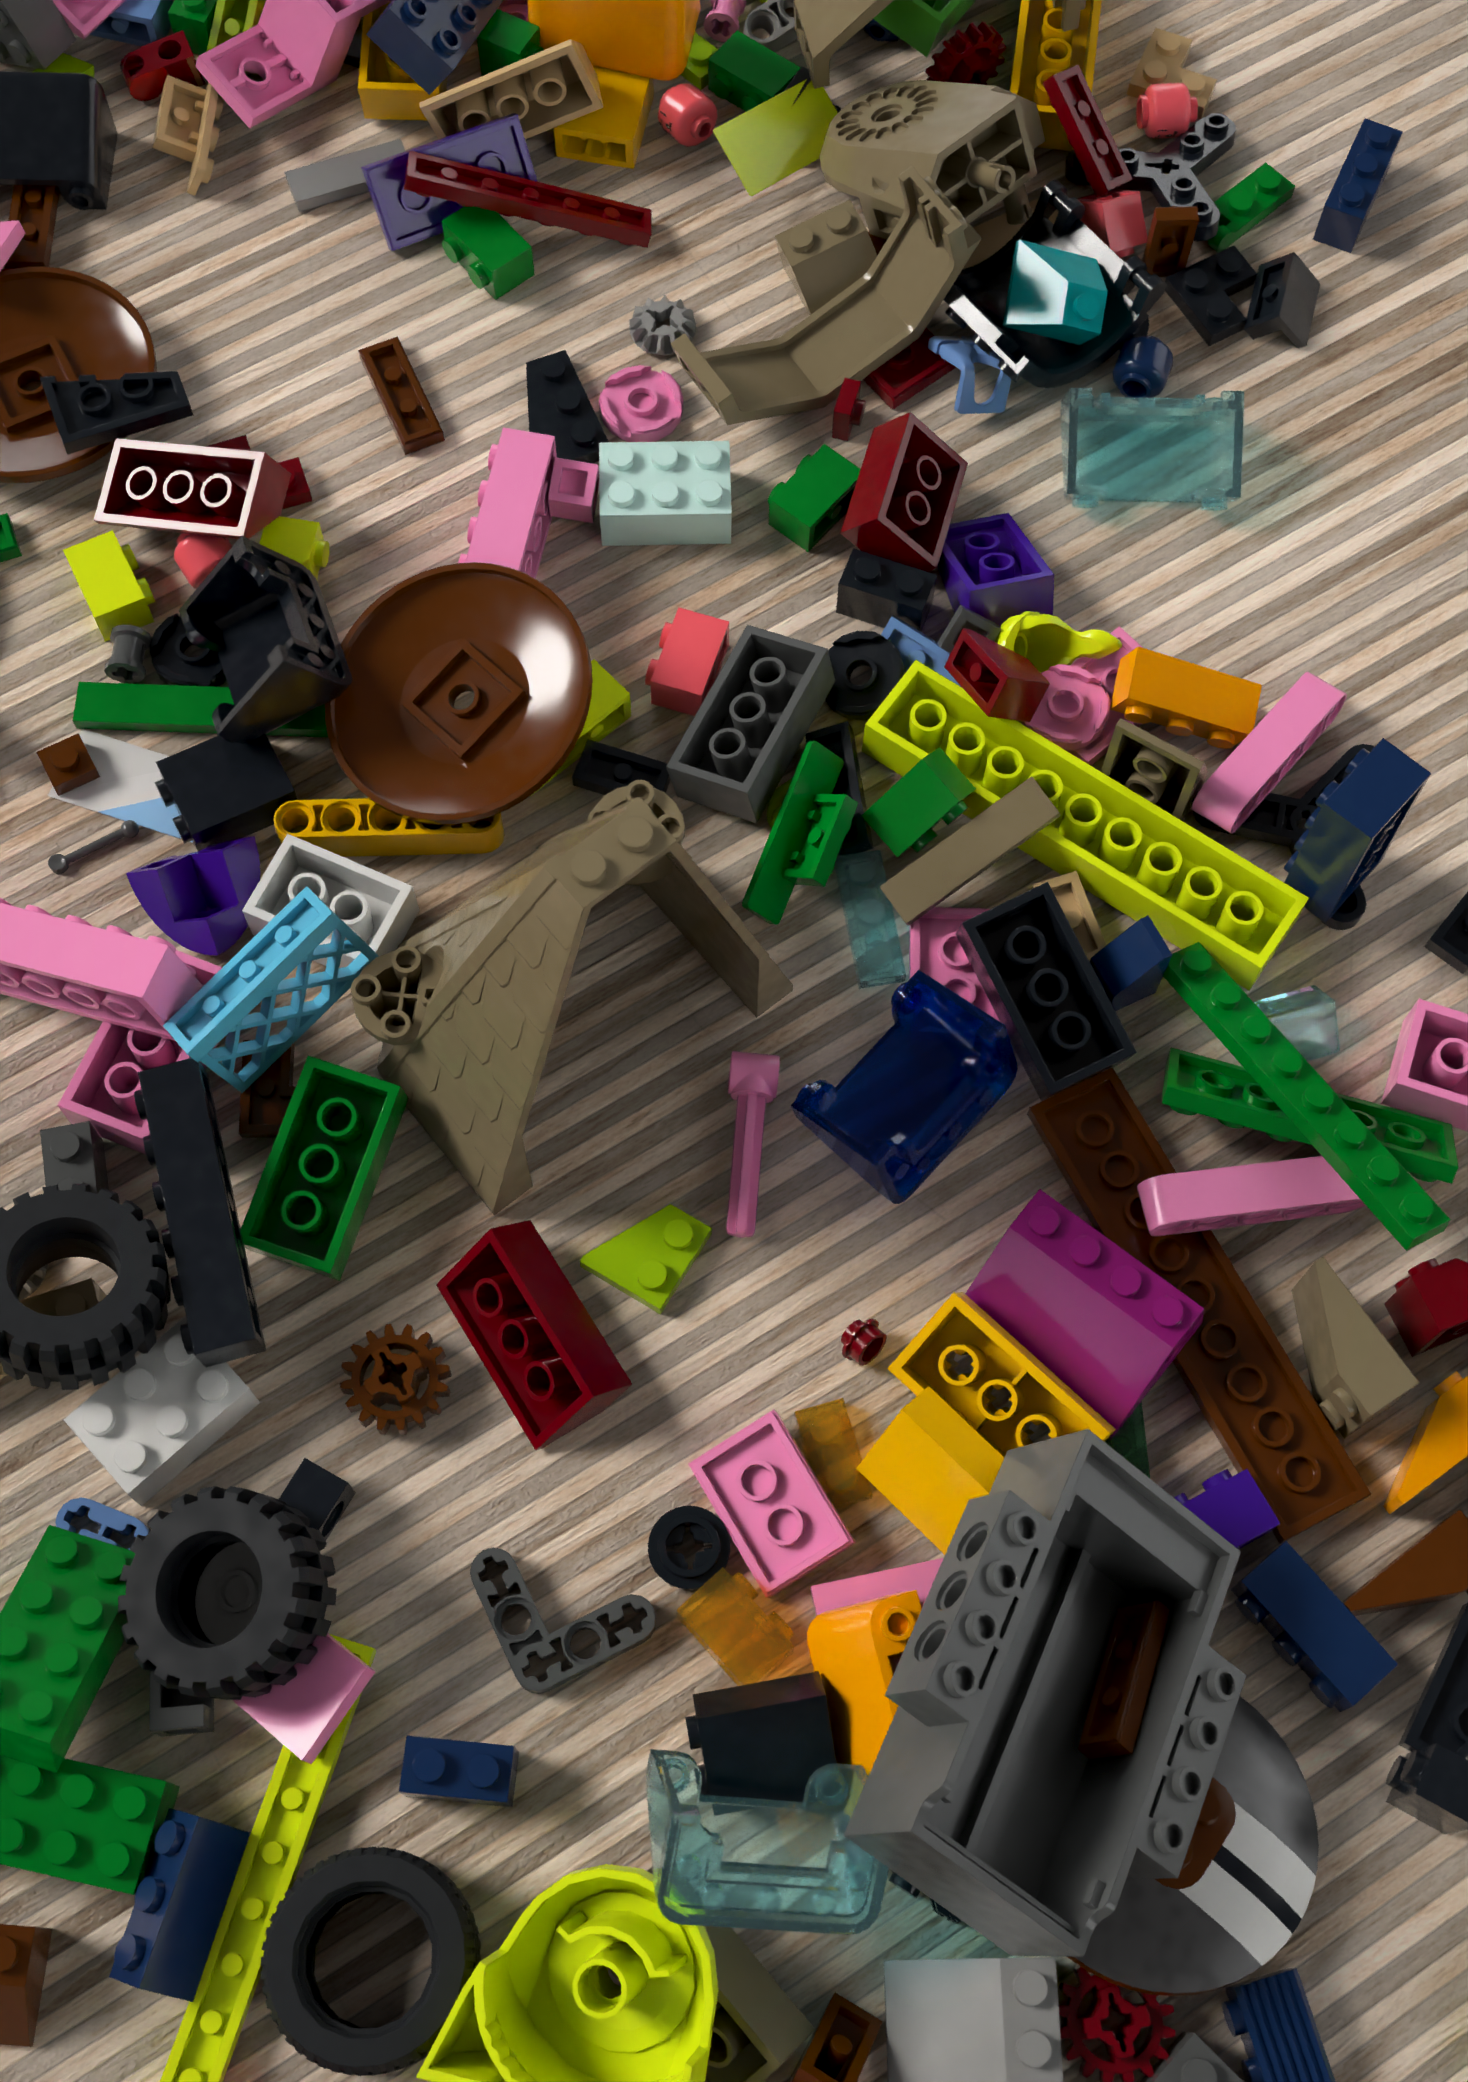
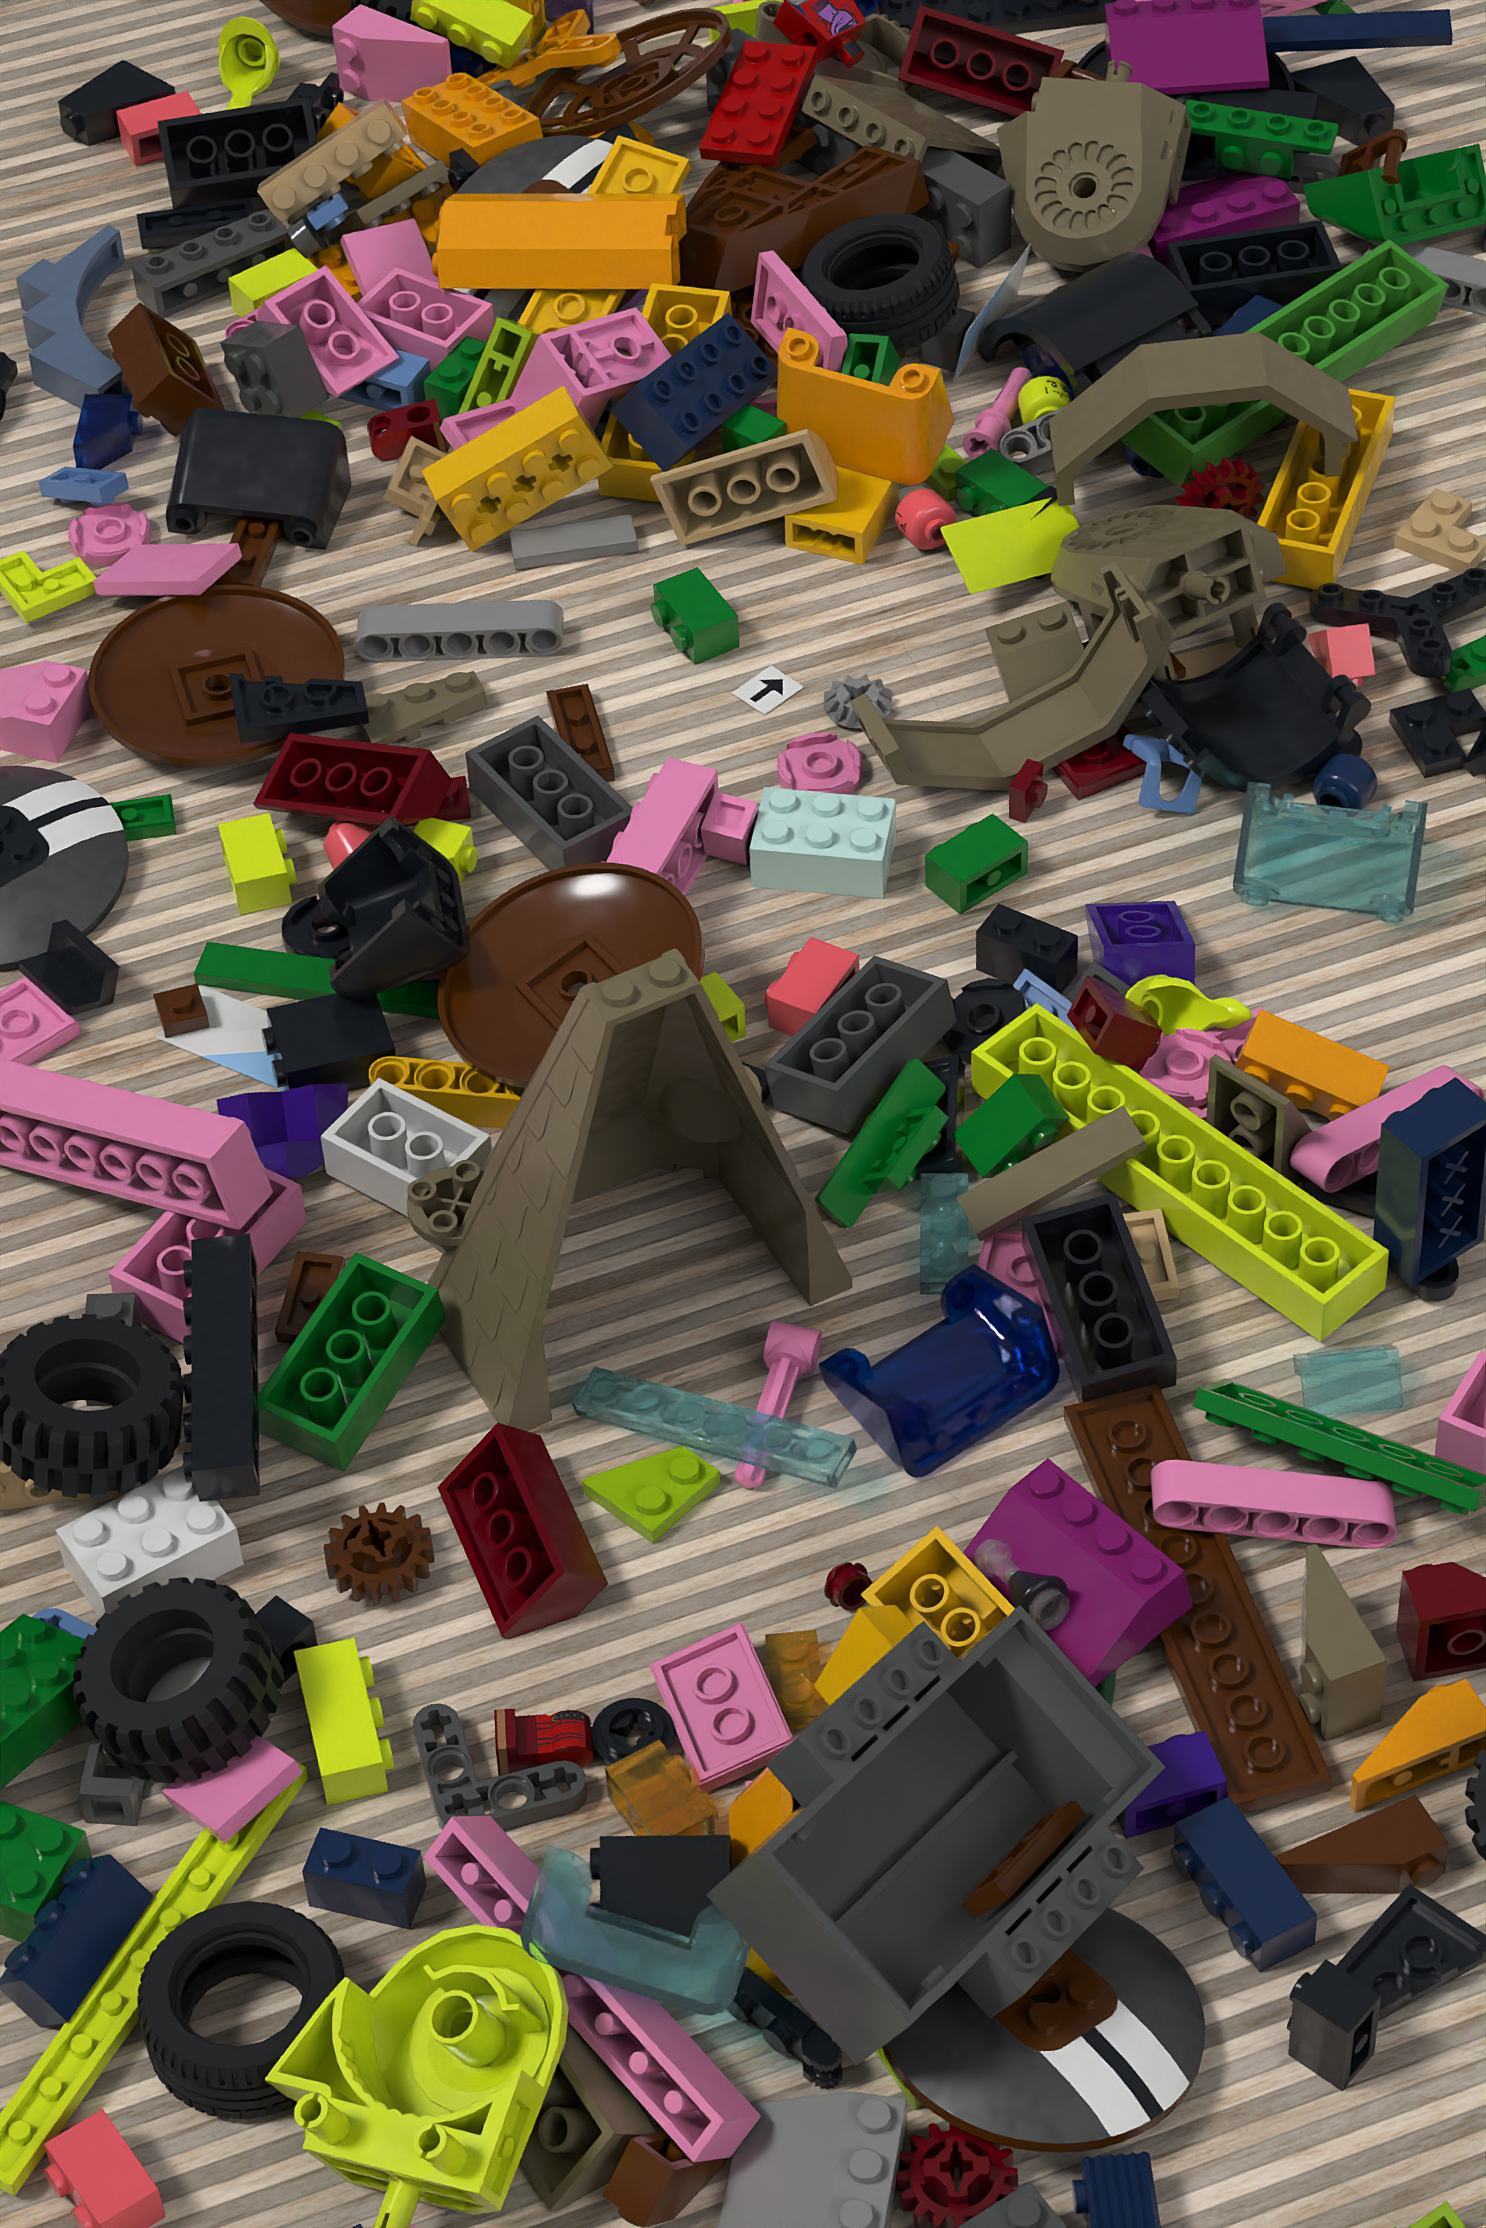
camera: 15 degrees right, 20 degrees down
(59, 863) = (227, 1073): dark grey hinge -> none
(128, 654) = (263, 916): dark grey bush -> none
(229, 387) = (421, 704): none -> dark tan wing
(258, 976) = (320, 1168): medium azure fence -> none
(259, 291) = (460, 631): none -> light grey beam
(282, 106) = (517, 468): none -> yellow brick
(390, 478) = (547, 795): none -> dark grey brick
(399, 1584) = (344, 1721): none -> neon yellow brick
(413, 218) = (650, 548): tile -> none
(527, 199) = (743, 573): dark red plate -> none
(562, 409) = (739, 756): black wing -> none
(571, 321) = (767, 690): none -> white sticker
(603, 1574) = (541, 1739): none -> leg
(699, 1183) = (715, 1427): none -> clear light blue plate
(817, 1973) = (624, 2028): none -> bright pink brick
(905, 494) = (1063, 862): dark red brick -> none
(1055, 294) = (1256, 704): teal slope -> none
(1060, 1350) = (1039, 1594): none -> clear piece
(1087, 130) = (1327, 565): dark red plate -> none
(1132, 964) = (1194, 1295): dark blue slope -> none
(1166, 110) = (1425, 560): coral head -> none
(1170, 239) = (1394, 672): reddish brown plate -> none
(1305, 1098) = (1335, 1412): green plate -> none

